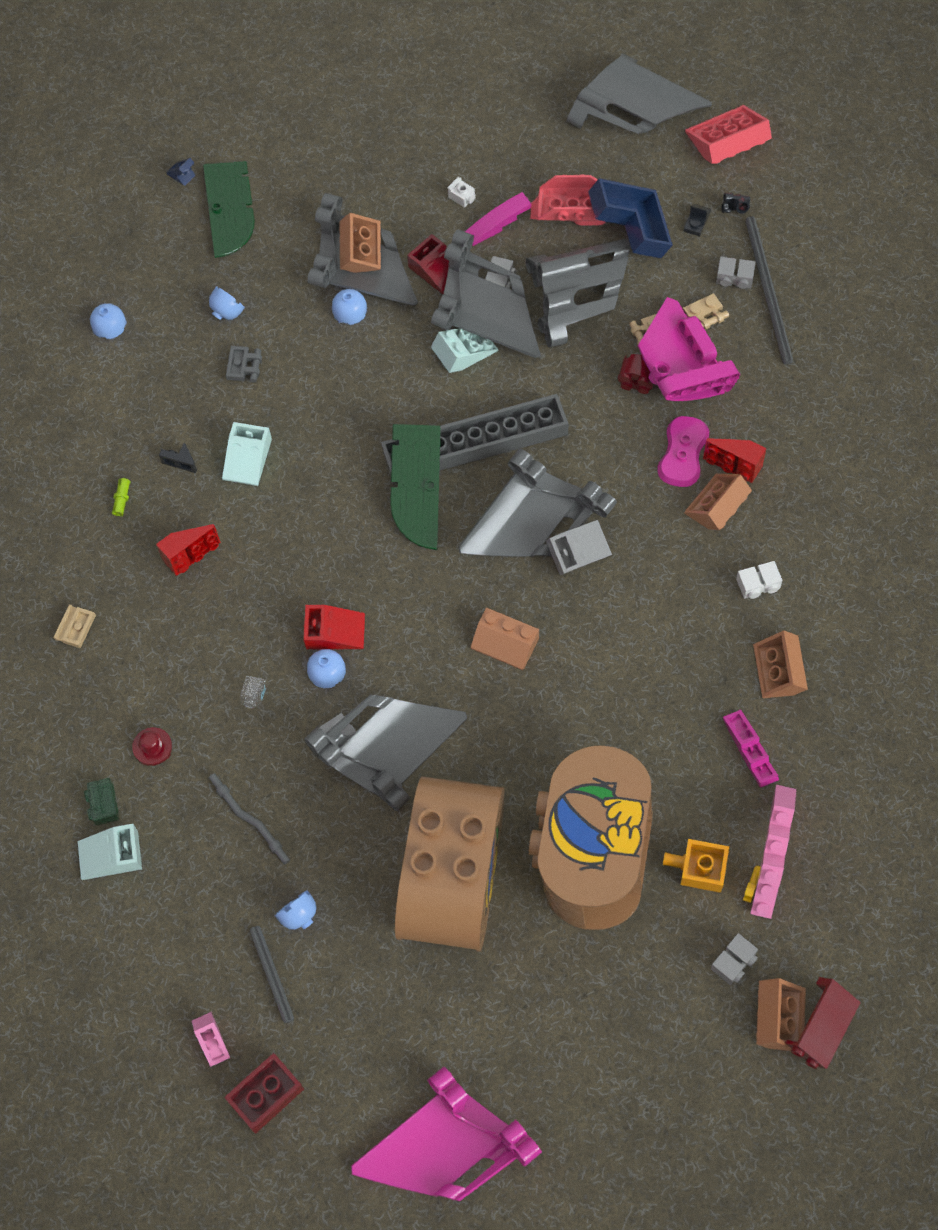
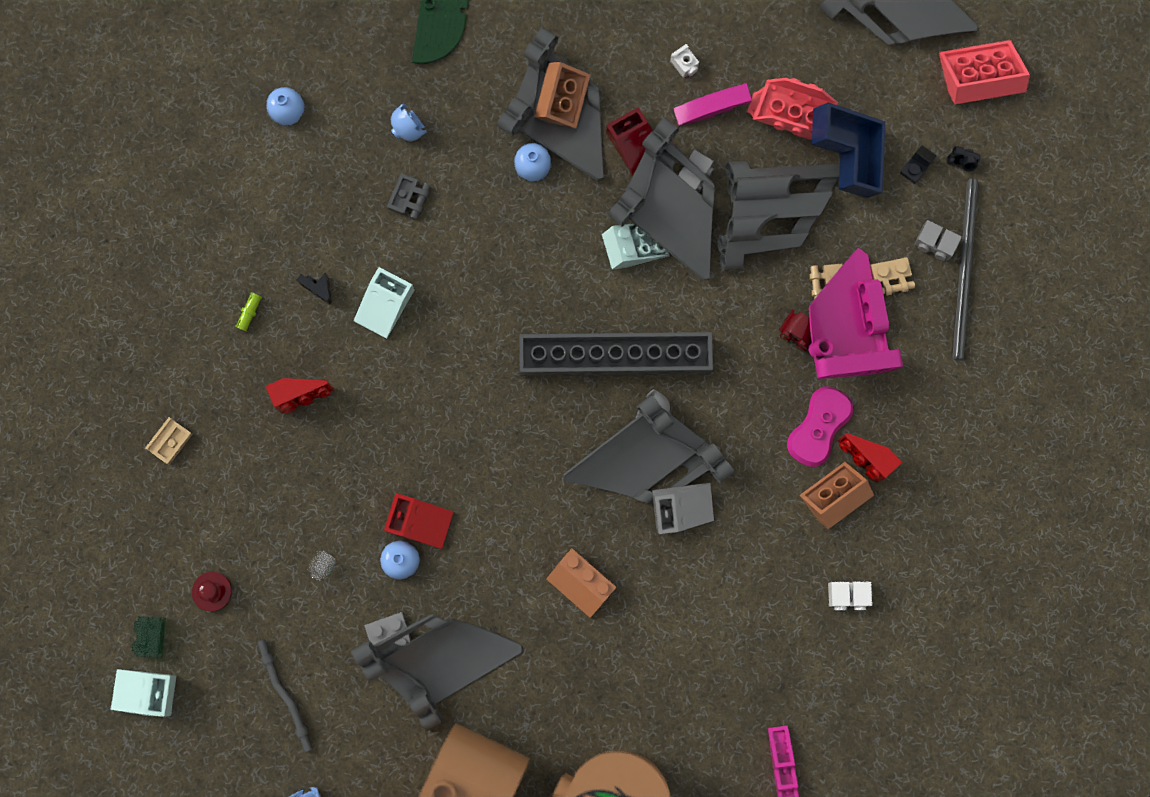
camera: 10 degrees right, 15 degrees up
(417, 473) = (545, 380): dark green door -> none
(780, 665) = (840, 692): nougat slope -> none

